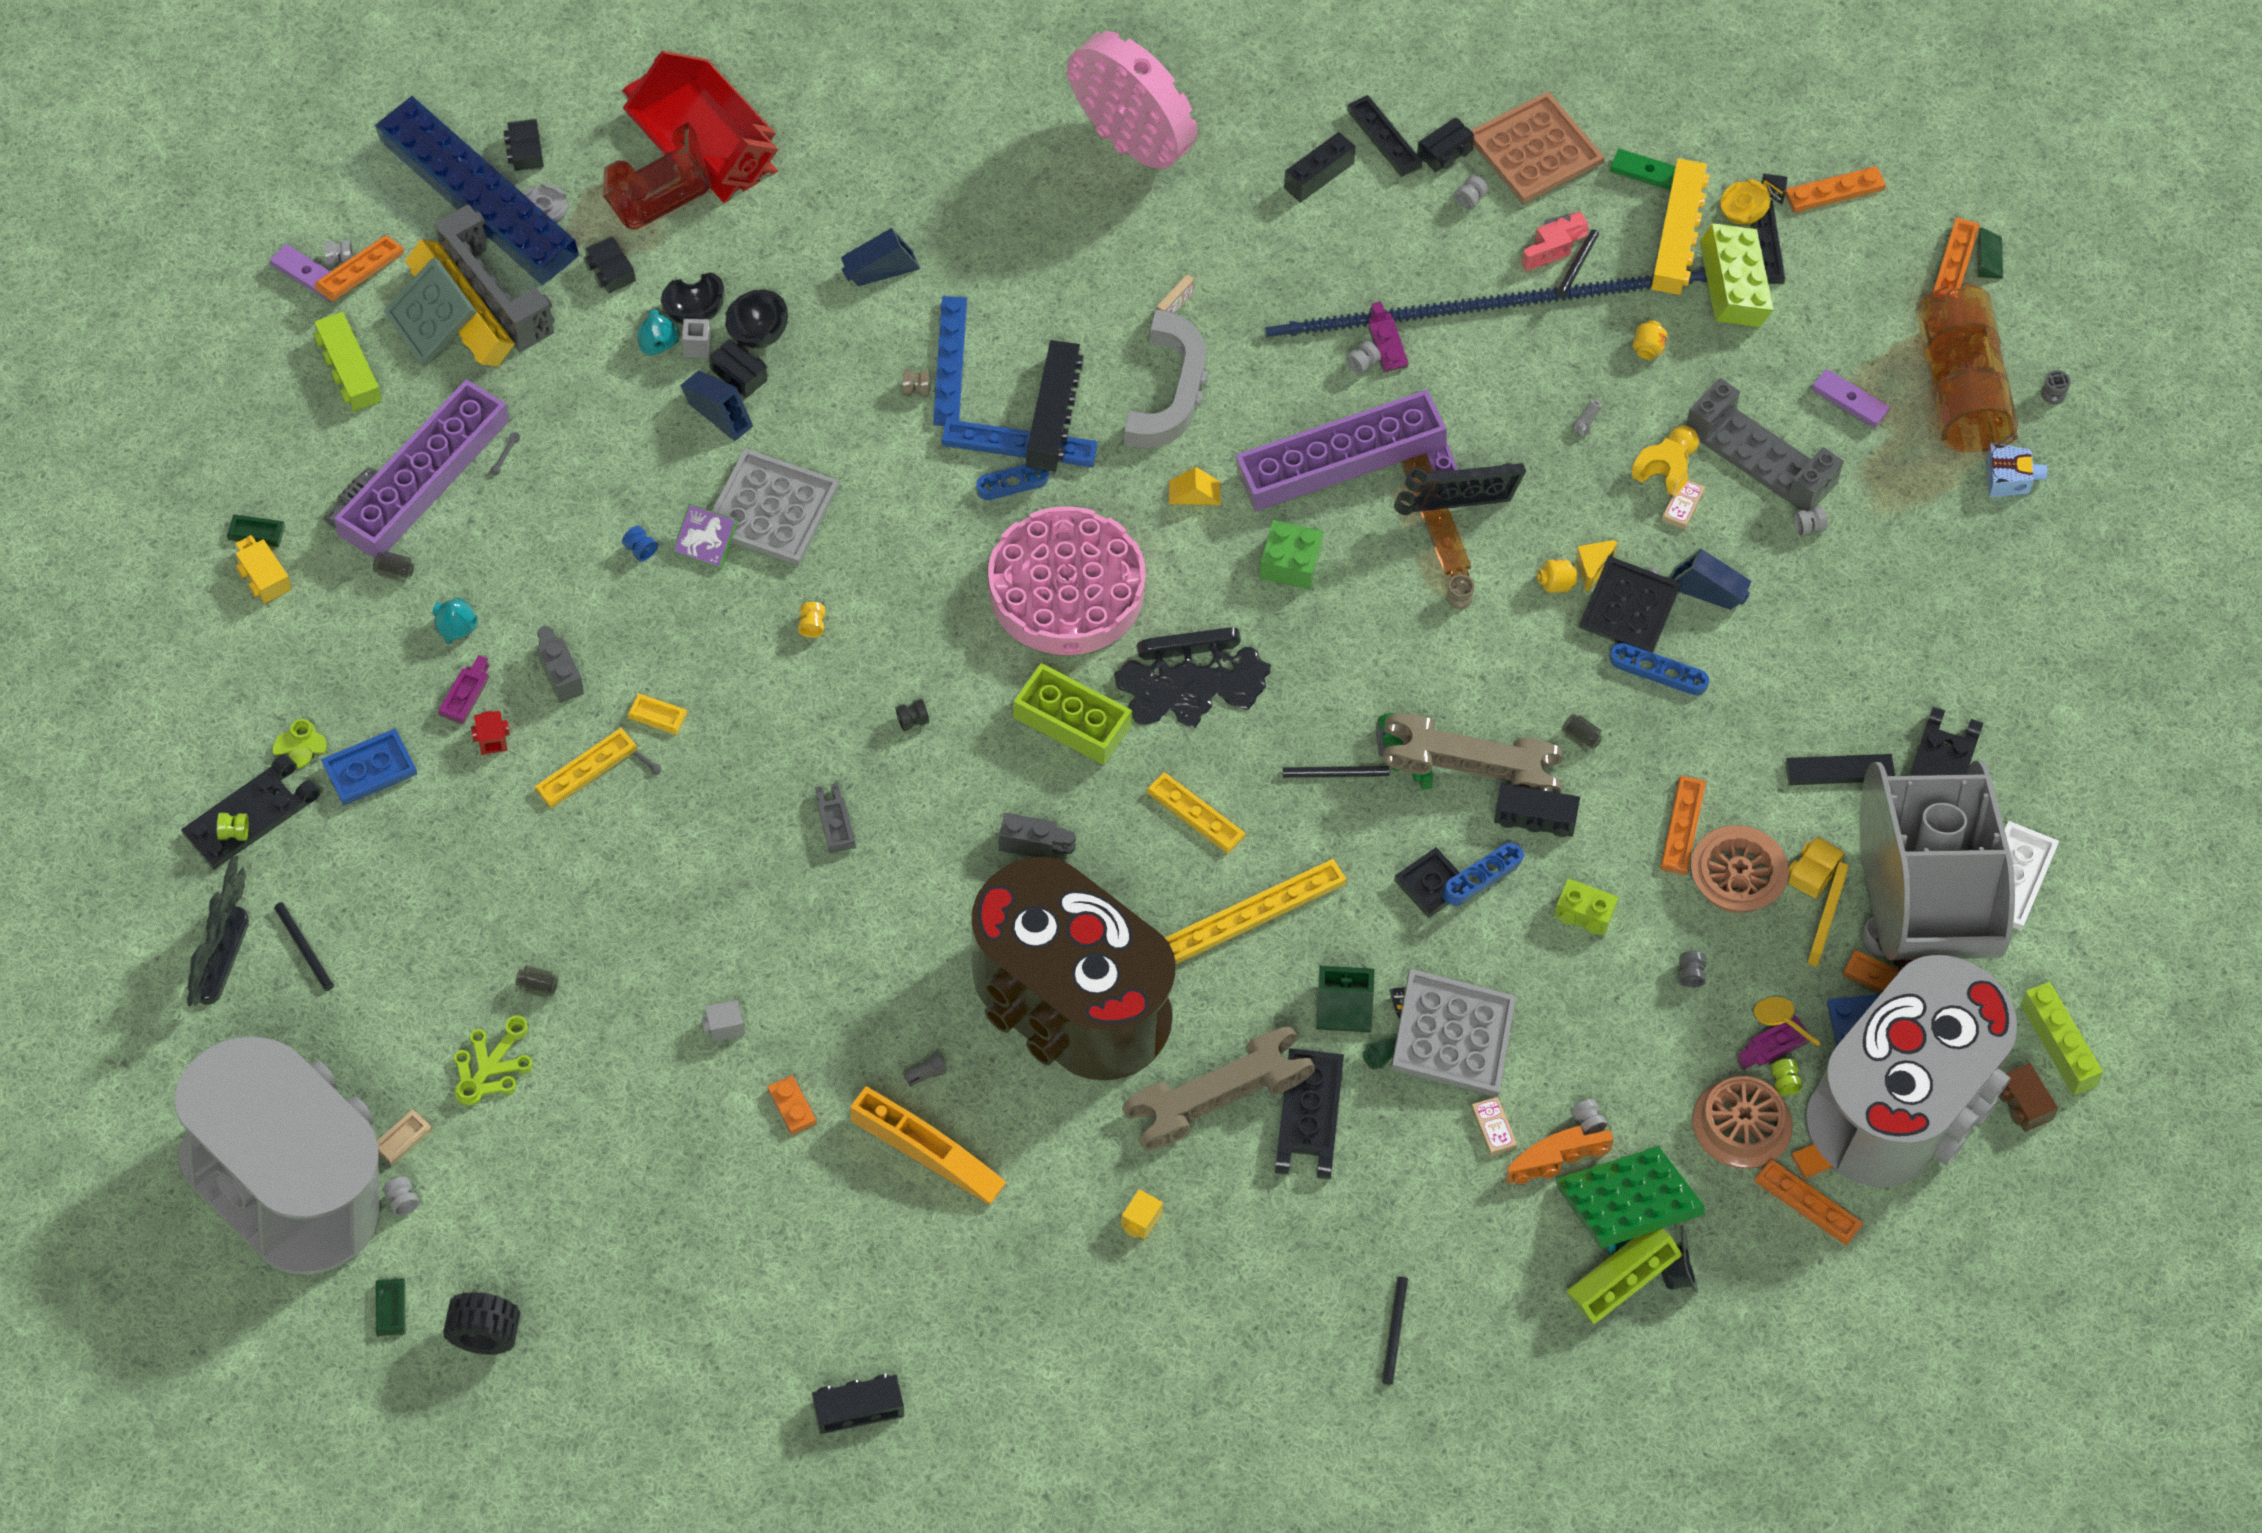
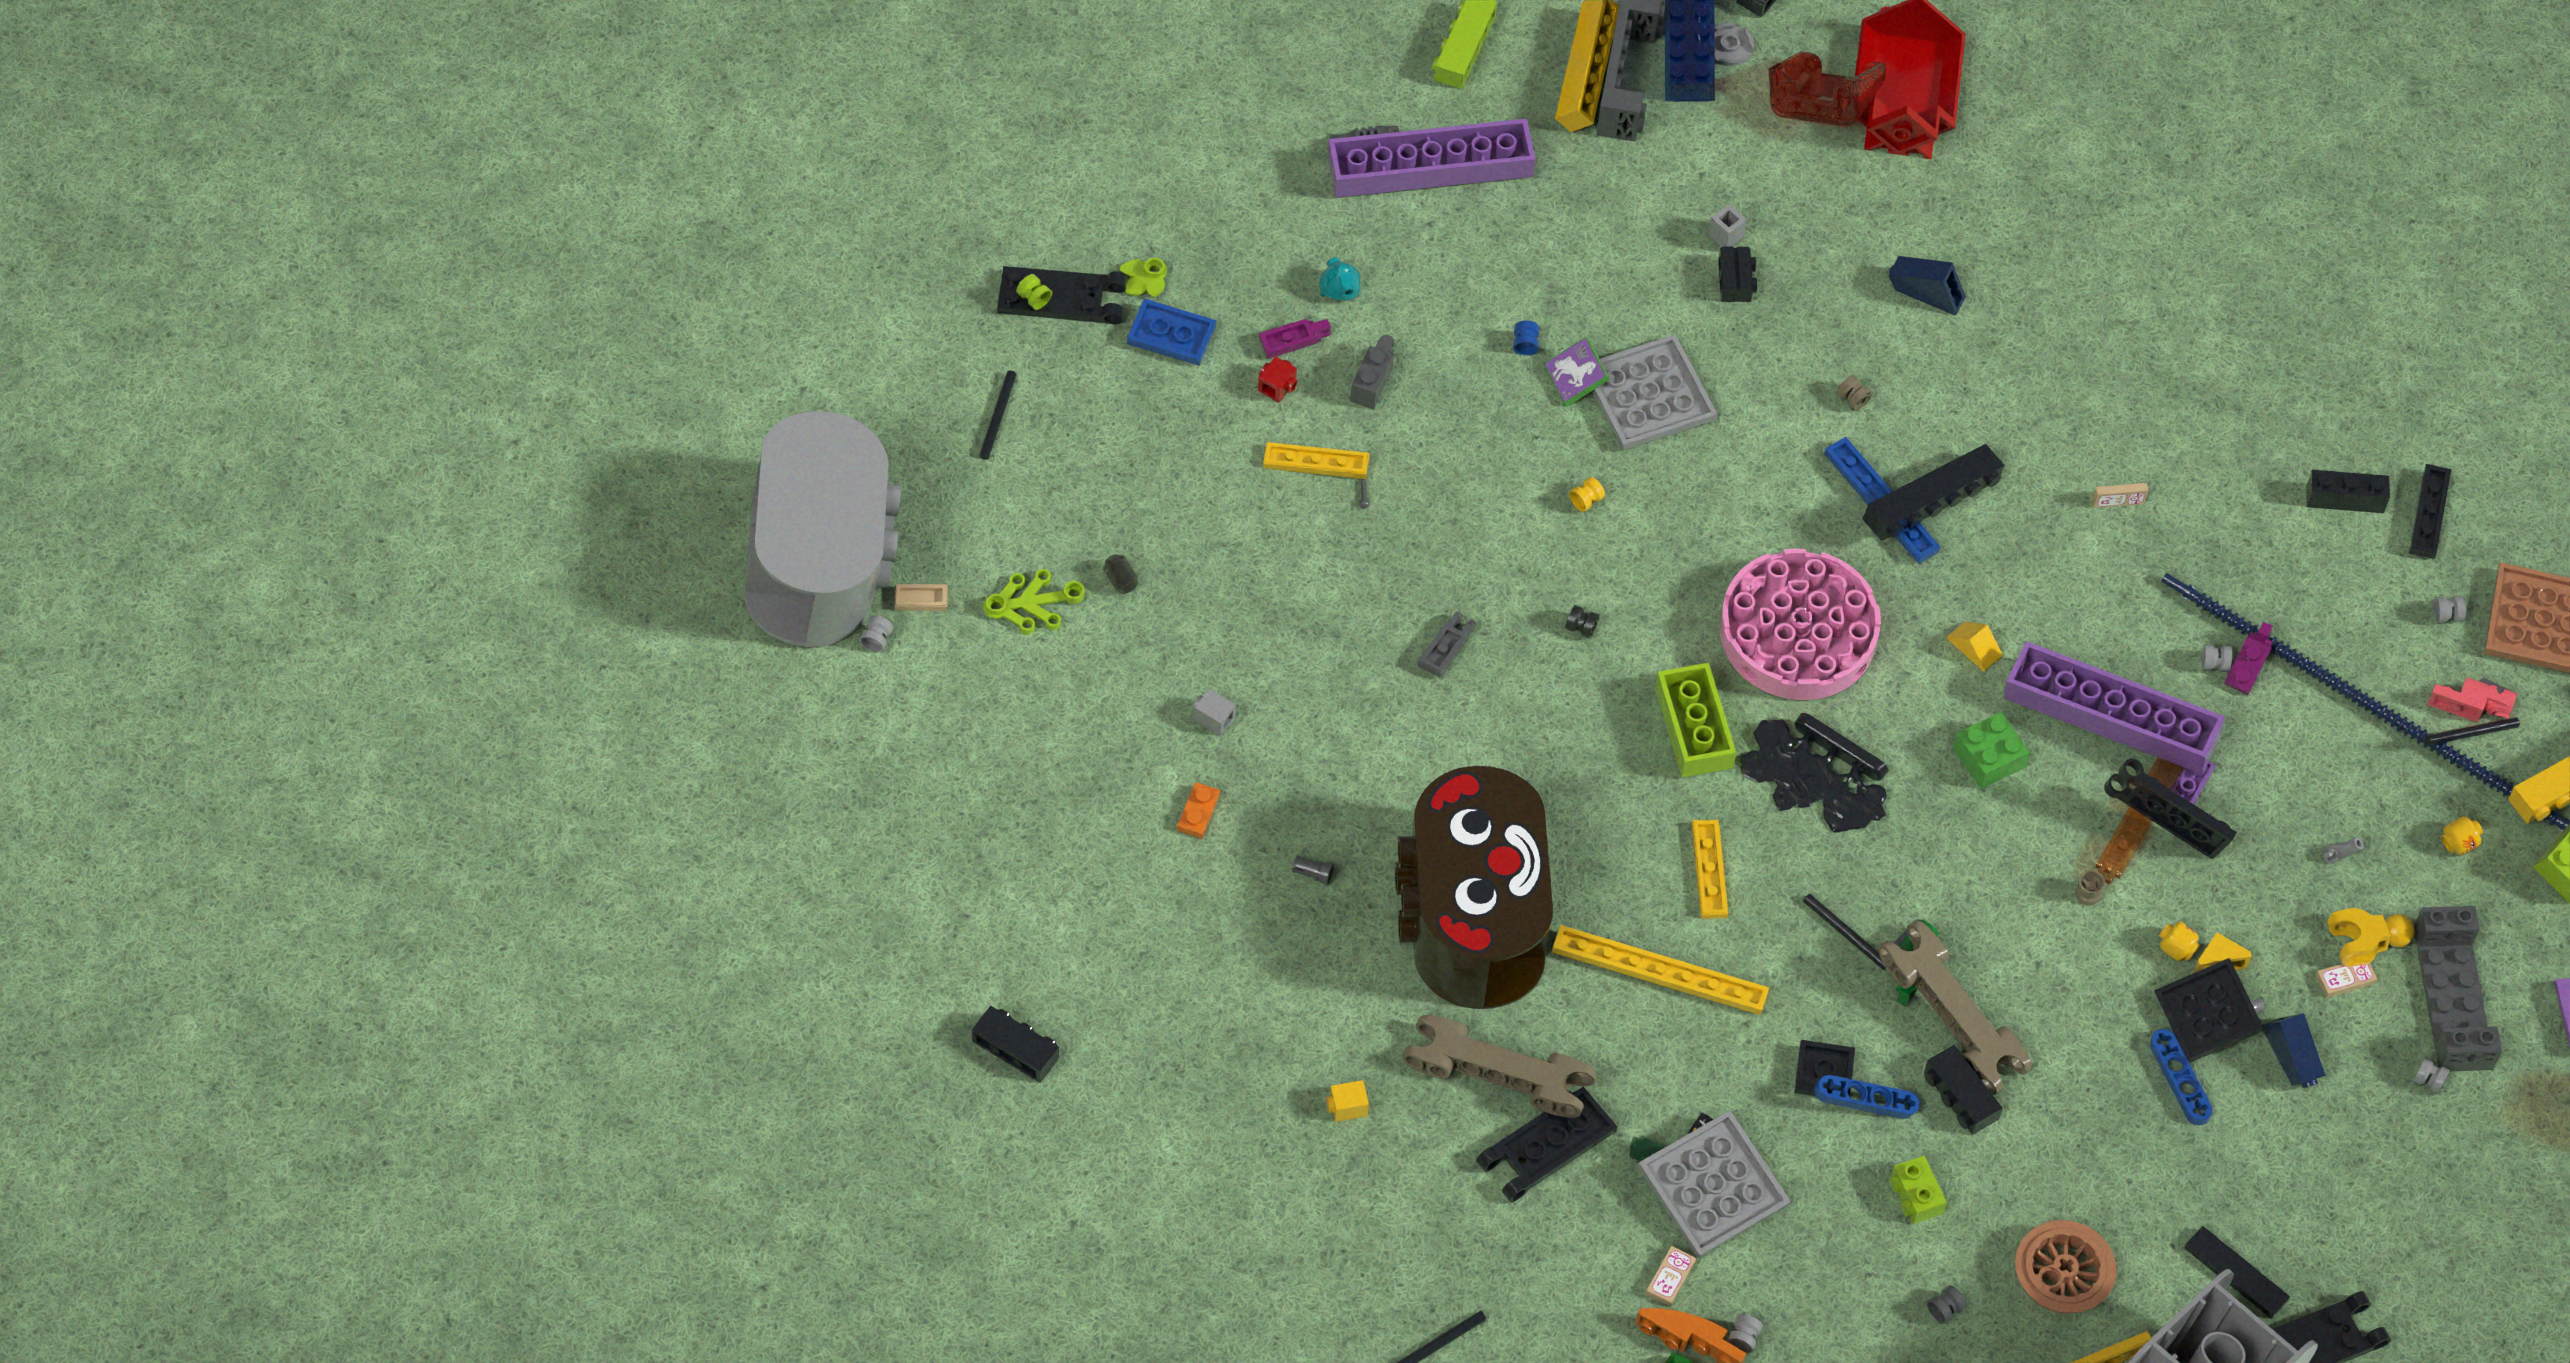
camera: 45 degrees right, 0 degrees up
(225, 933) = (943, 358): black plant -> none
(259, 528) = (1276, 107): dark green tile -> none
(261, 569) = (1247, 135): yellow brick -> none
(390, 1307) = (792, 700): dark green tile -> none
(393, 566) = (1339, 209): clear smoke brick -> none
(429, 311) = (1557, 51): sand green plate -> none
(481, 1323) = (829, 760): black tyre -> none
(514, 438) = (1525, 191): dark grey hinge -> none
(609, 264) = (1726, 124): black brick -> none
(656, 329) = (1706, 198): teal helmet -> none
(657, 714) = (1407, 466): yellow tile -> none
(695, 300) = (1754, 198): black cylinder -> none
(717, 403) = (1691, 287): dark blue slope -> none
(757, 318) = (1785, 249): black cylinder -> none
(924, 1144) = (1253, 918): light orange slope -> none
(950, 360) = (1901, 398): blue plate -> none
(1017, 472) = (1842, 513): blue beam -> none
(1034, 837) = (1569, 779): dark grey hinge -> none
(1131, 109) = (2235, 315): bright pink brick -> none
(1164, 427) = (2021, 581): light grey arch -> none
(1345, 999) = (1662, 1089): dark green slope -> none
(1446, 145) = (2470, 558): black brick -> none
(1582, 732) = (2064, 1067): clear smoke brick -> none
(1683, 825) = (2067, 1199): orange tile -> none
(1815, 867) = (2128, 1319): yellow brick -> none

